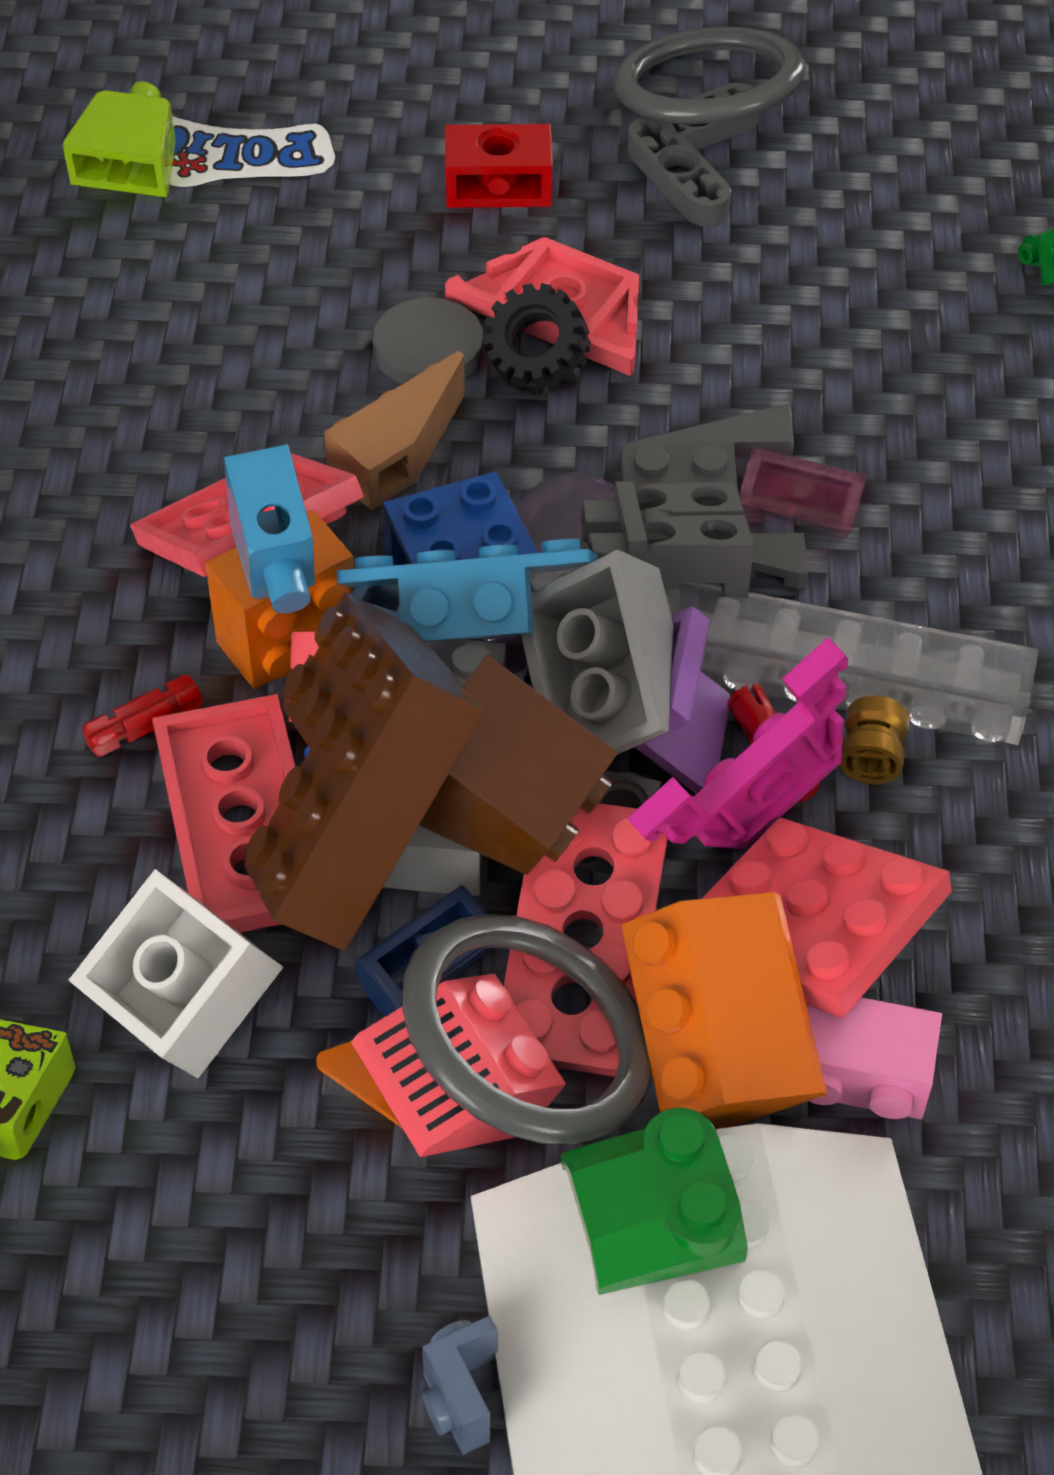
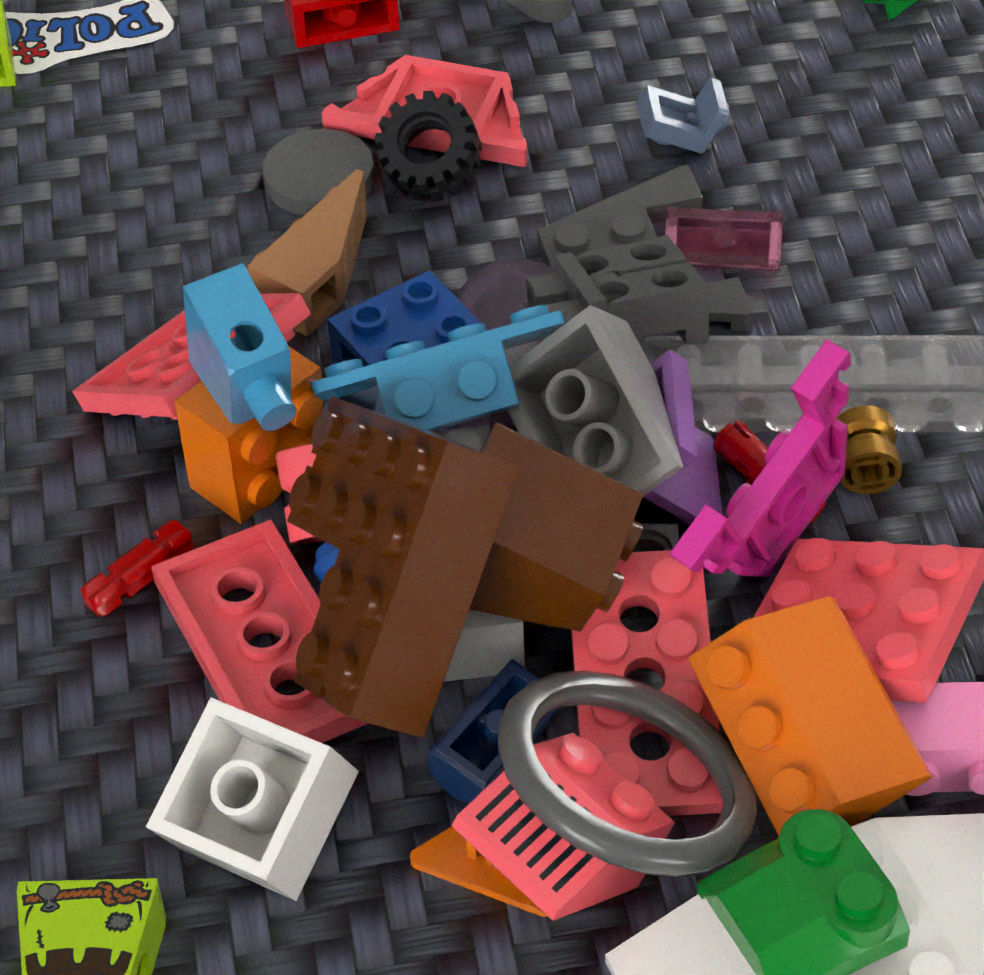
camera: 10 degrees left, 5 degrees down
(797, 355) = (682, 120): none -> sand blue bracket

